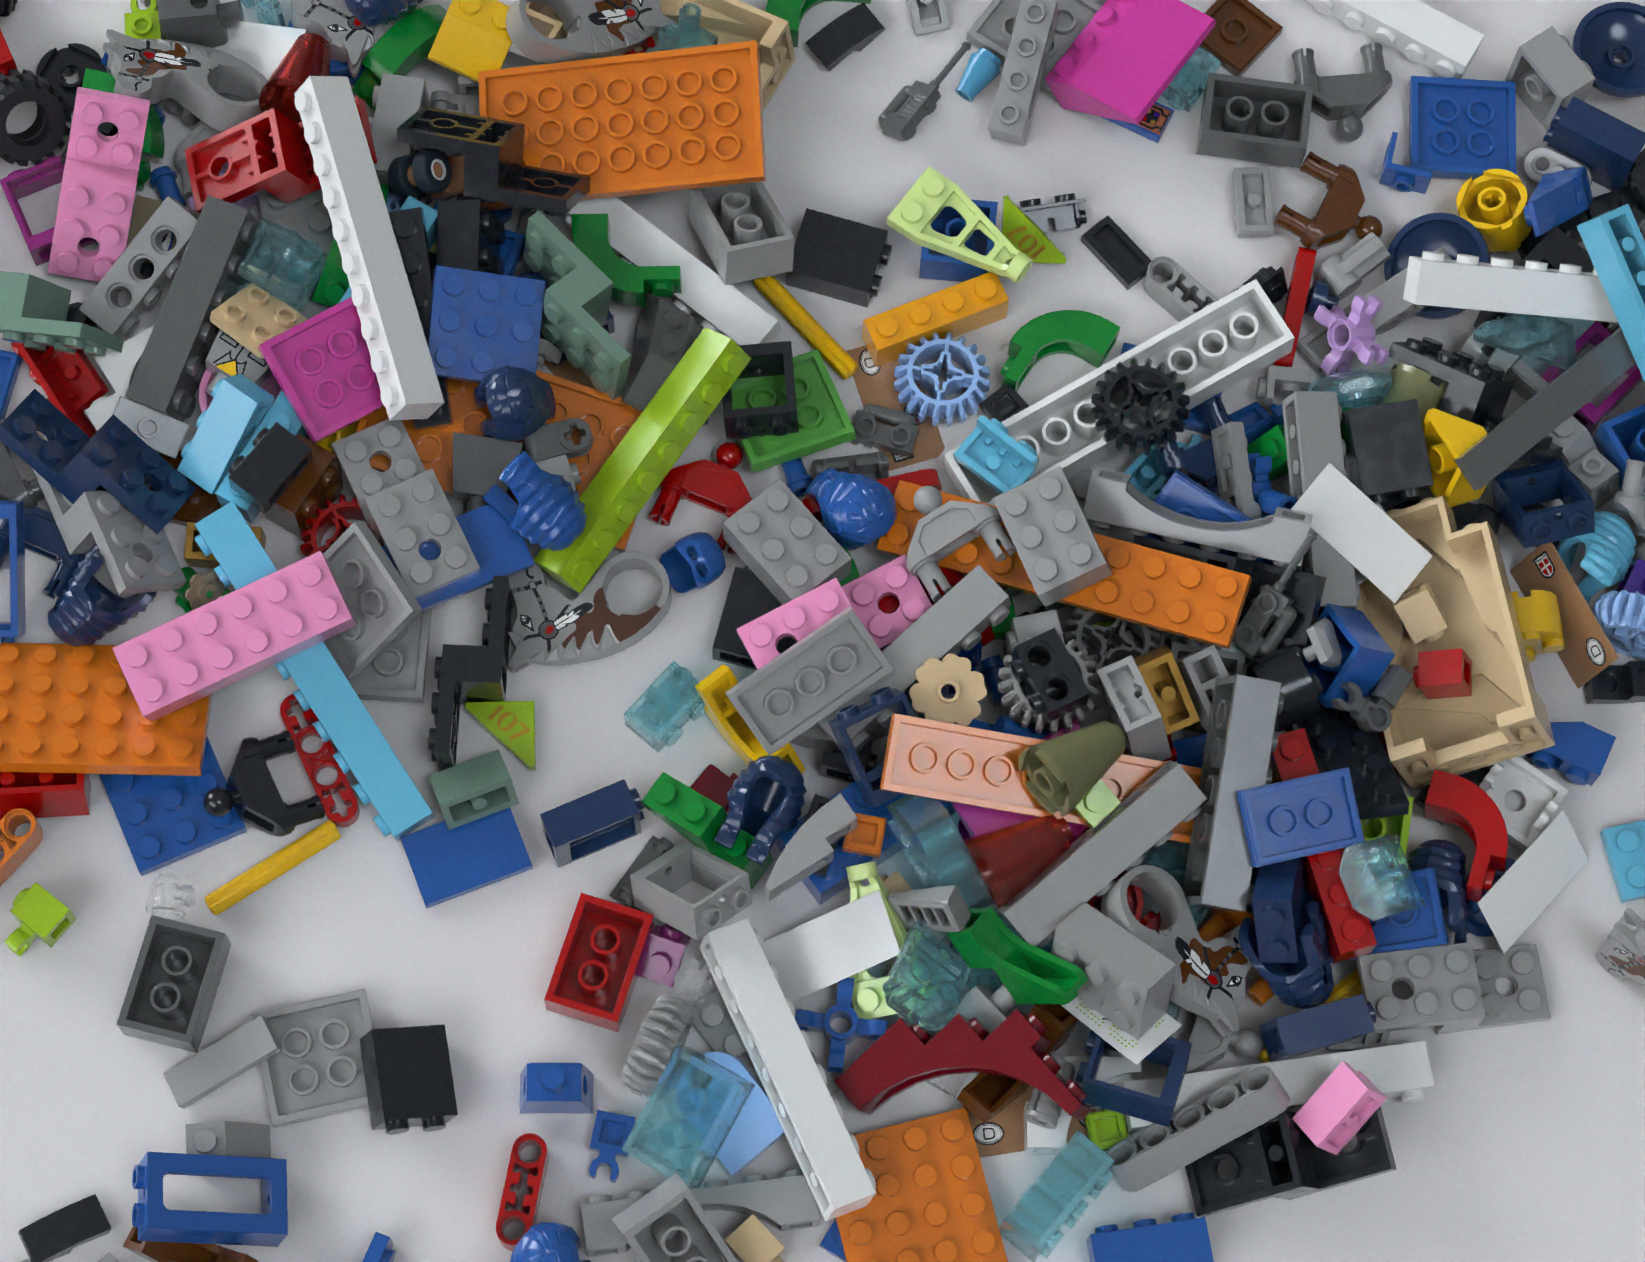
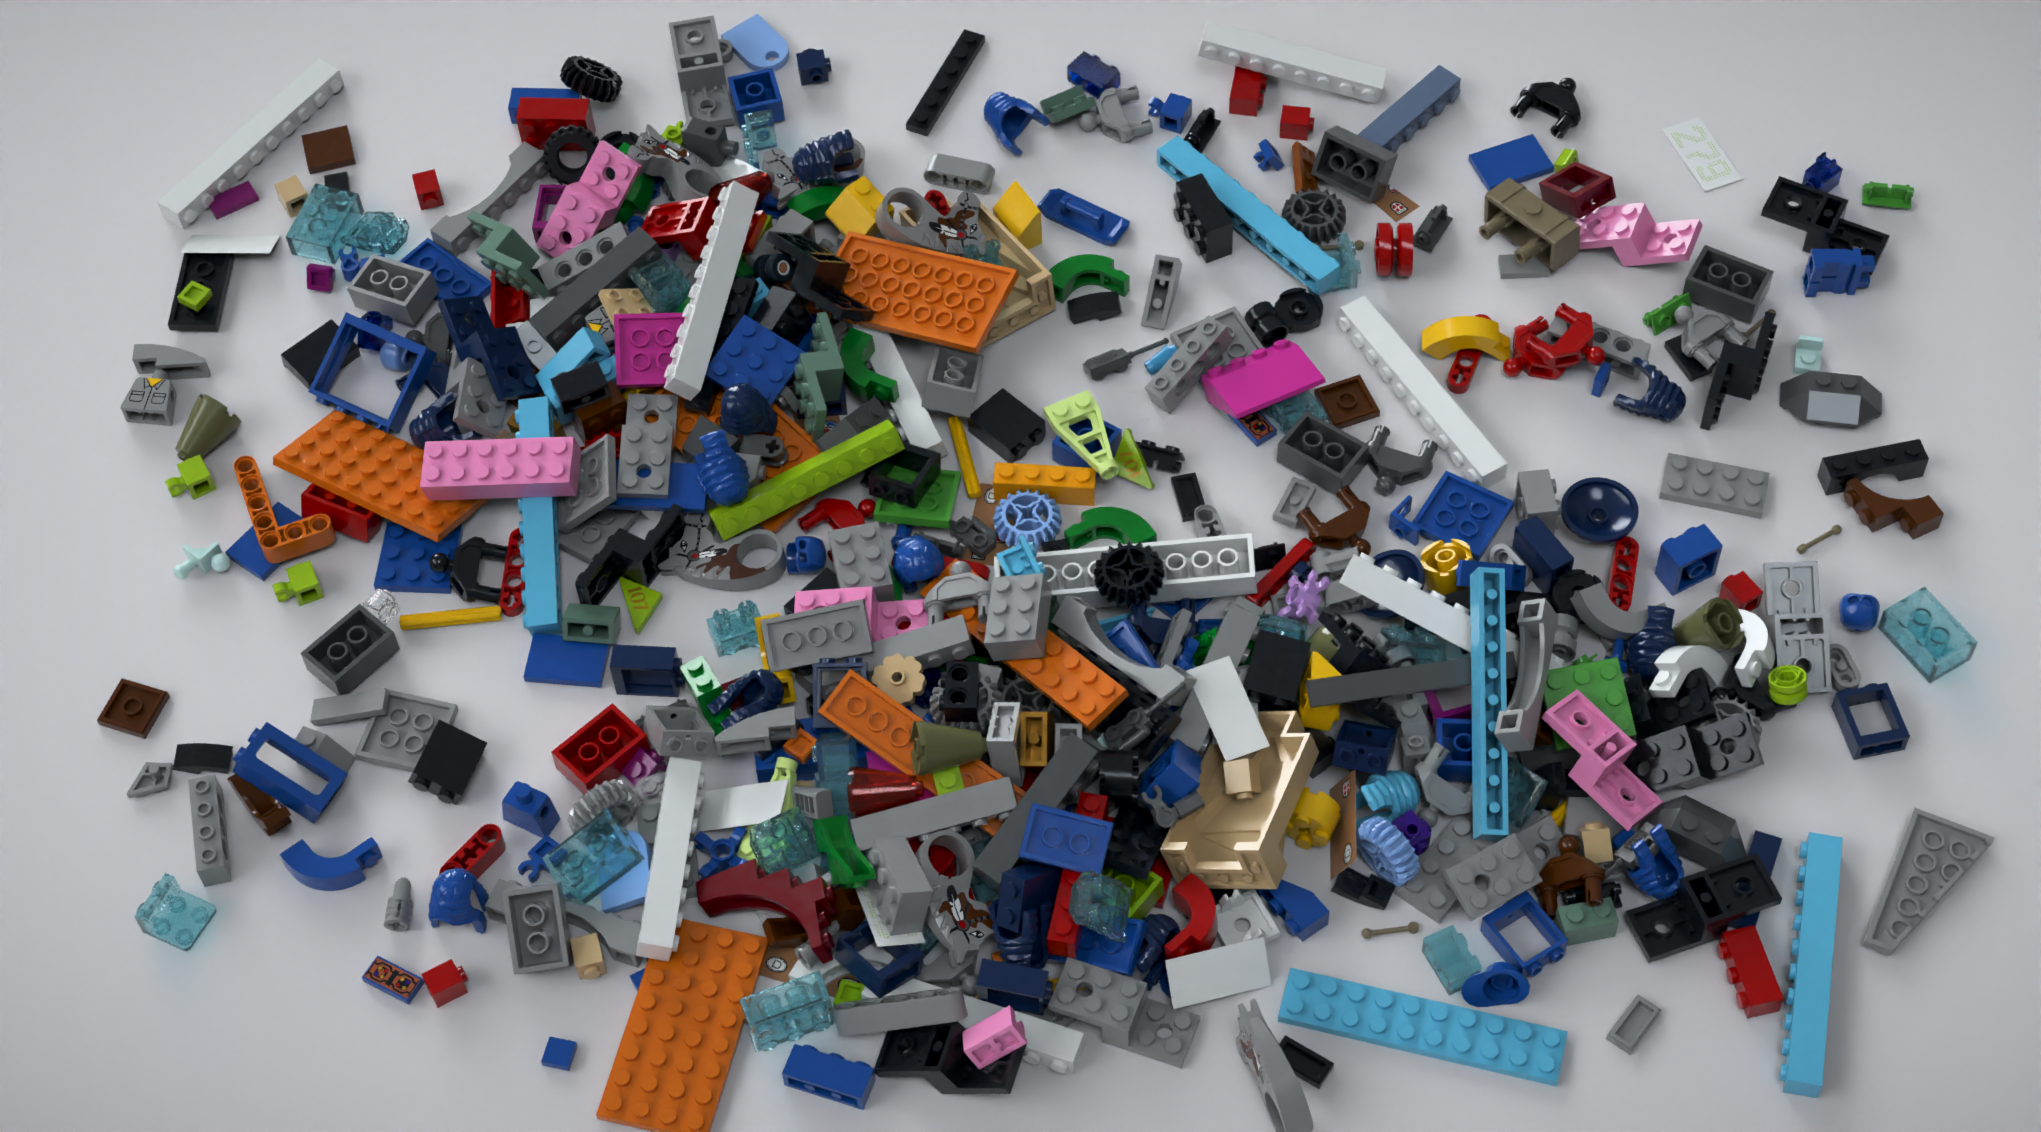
camera: 35 degrees right, 15 degrees down
(1324, 644) = (1153, 755): light grey piece -> none
(1443, 674) = (1234, 819): red brick -> none

